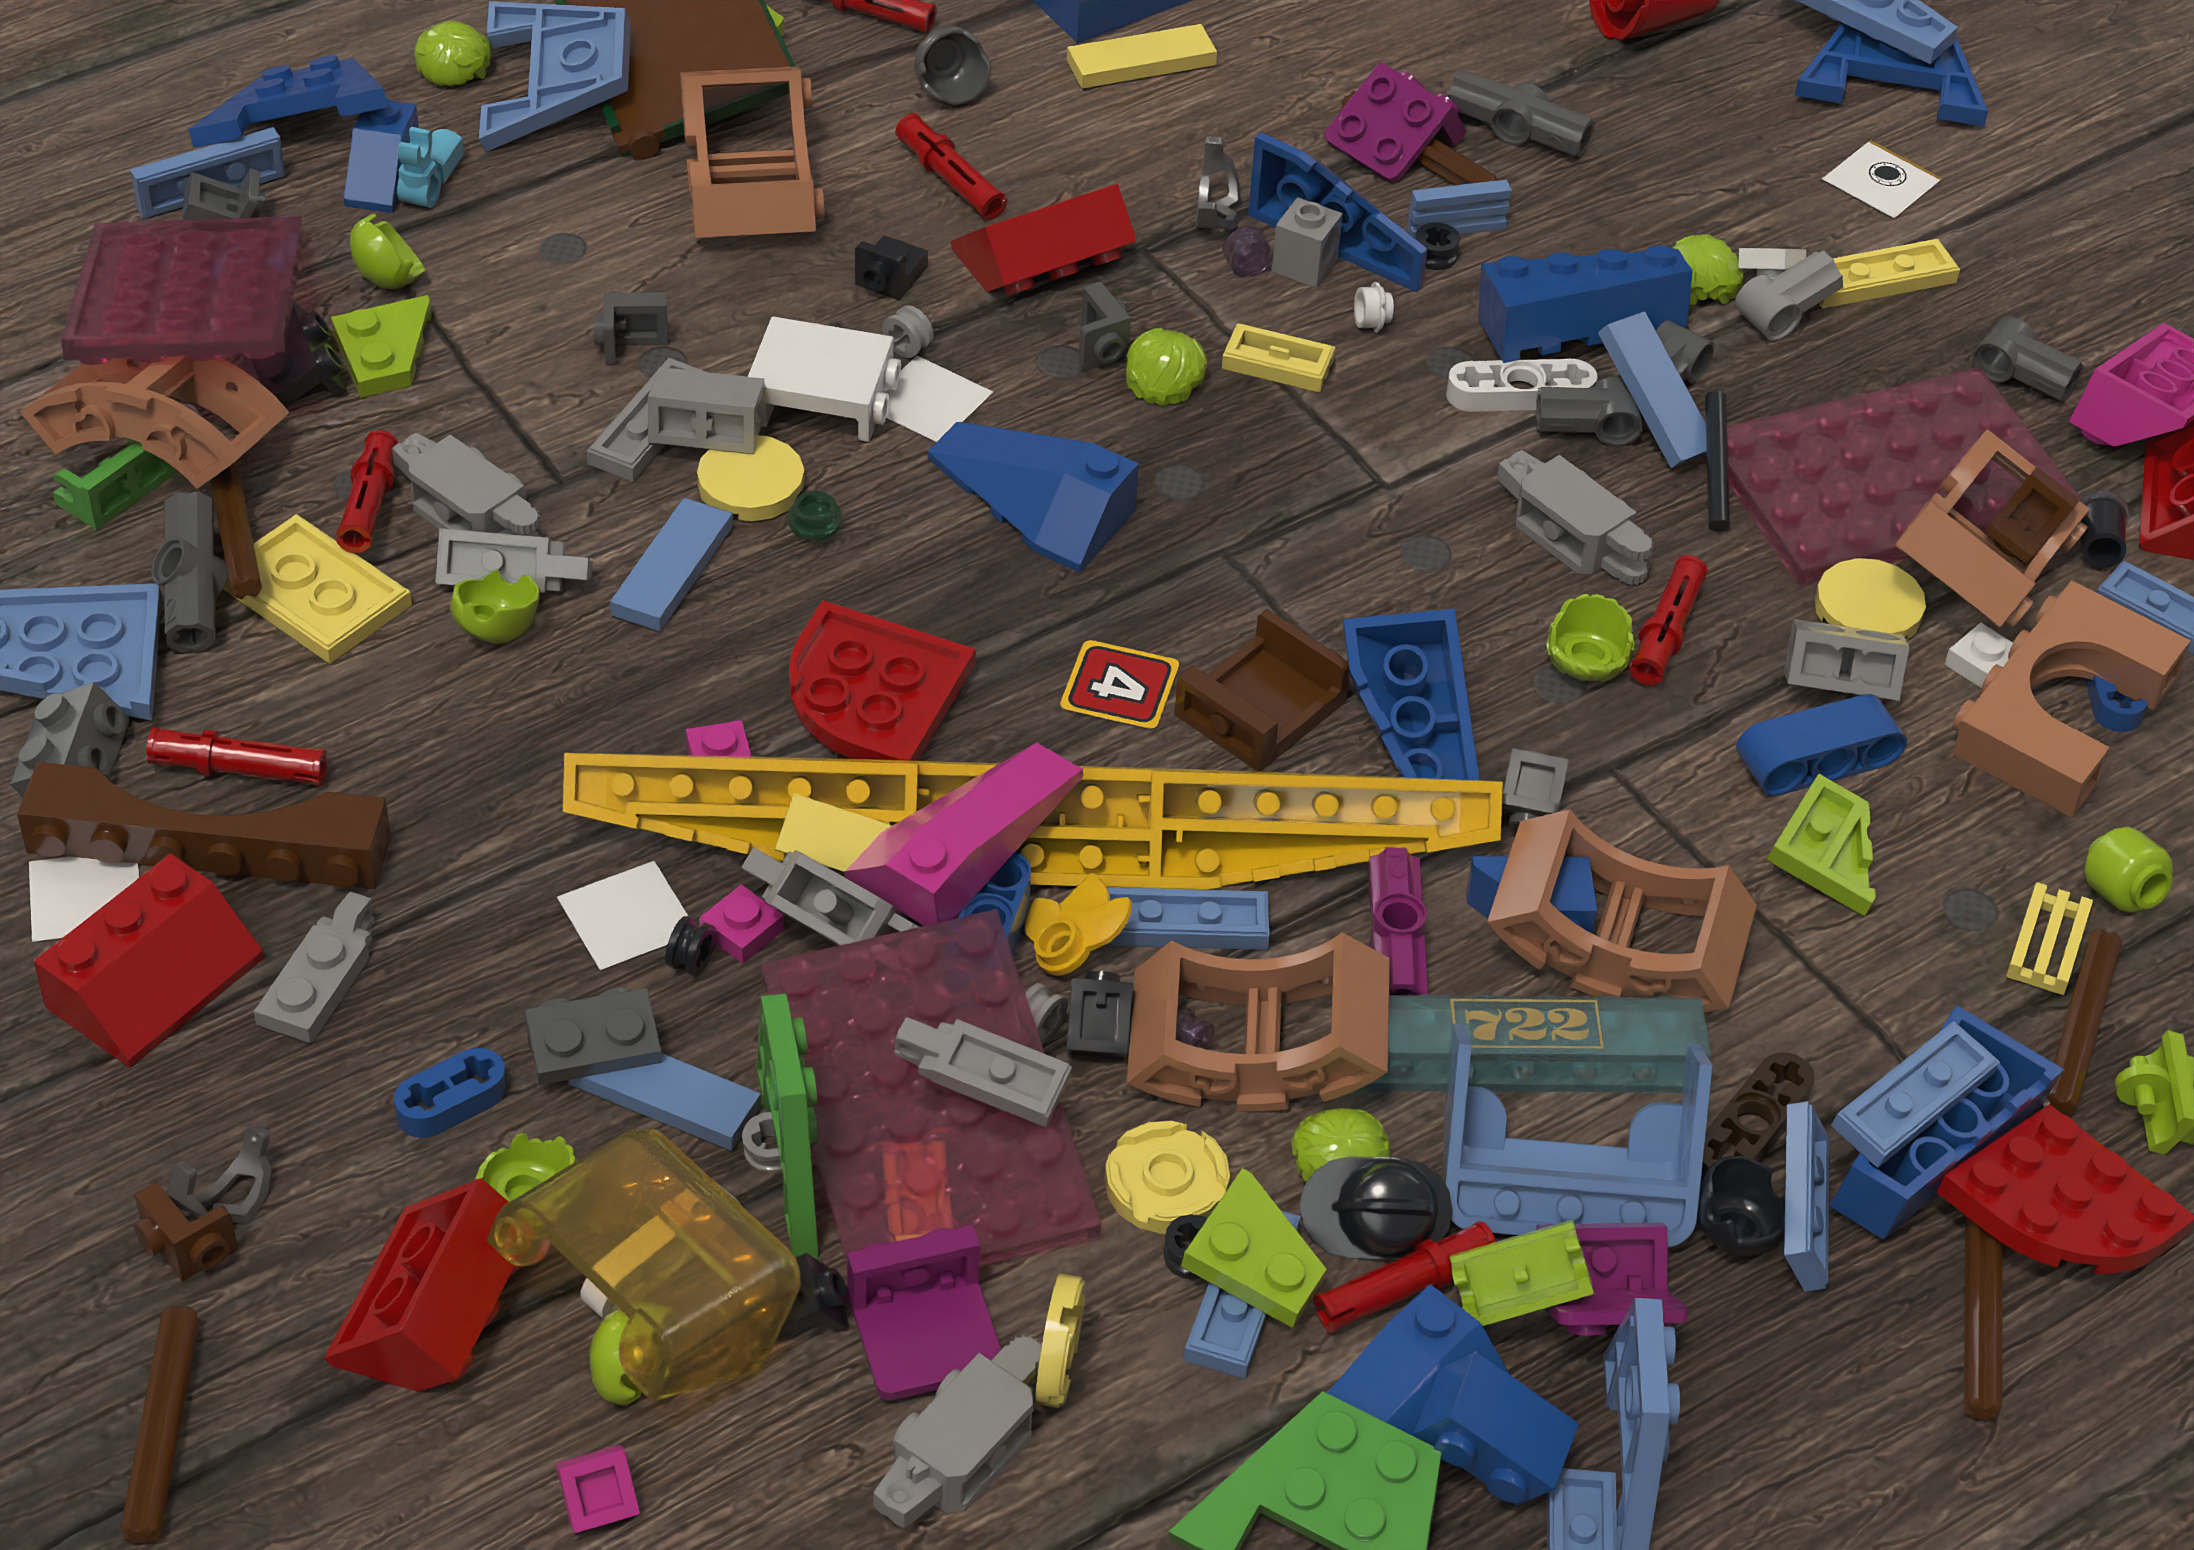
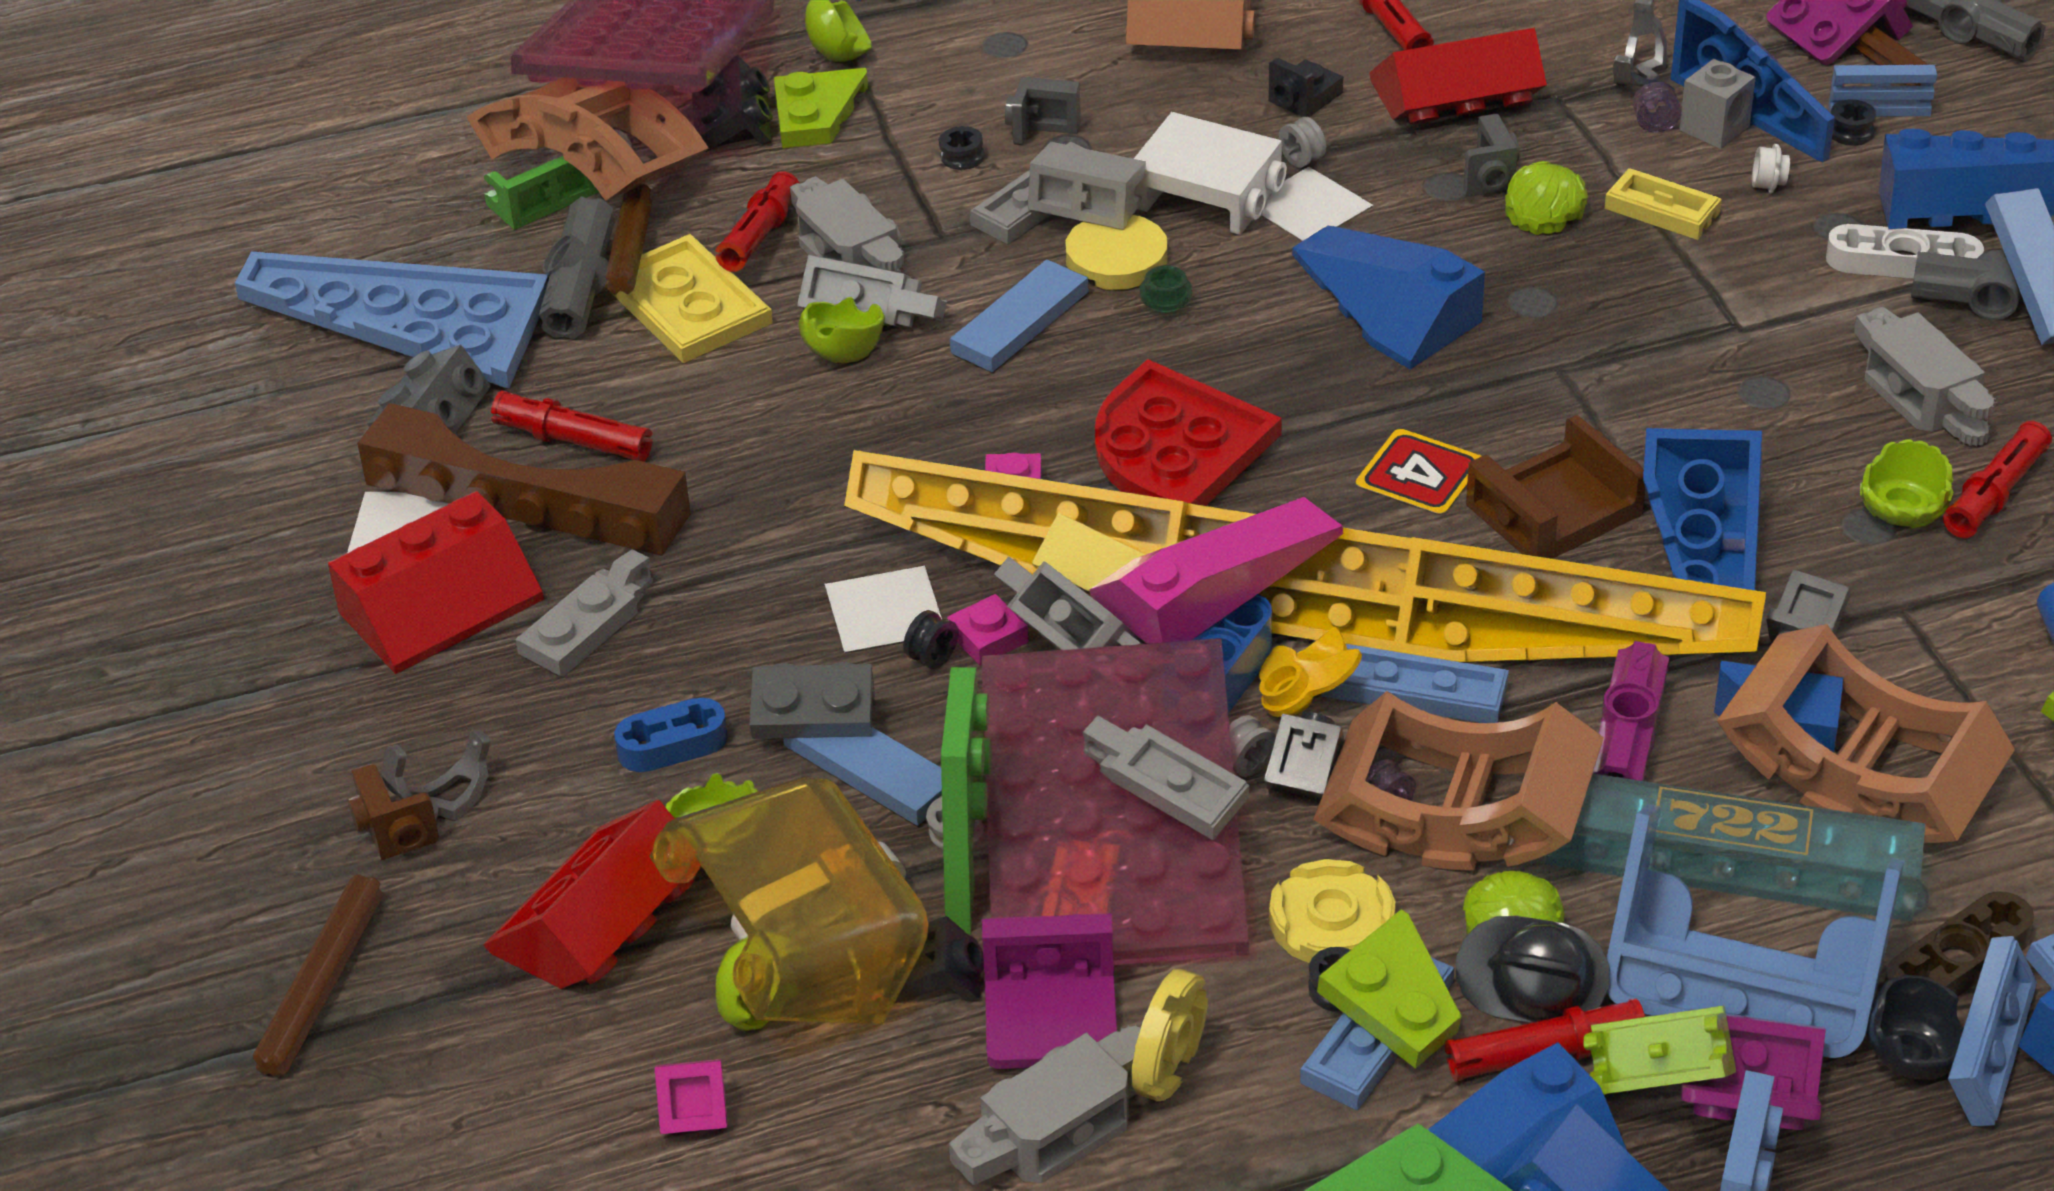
camera: 20 degrees right, 5 degrees down
(553, 365) = (961, 147): none -> black bush

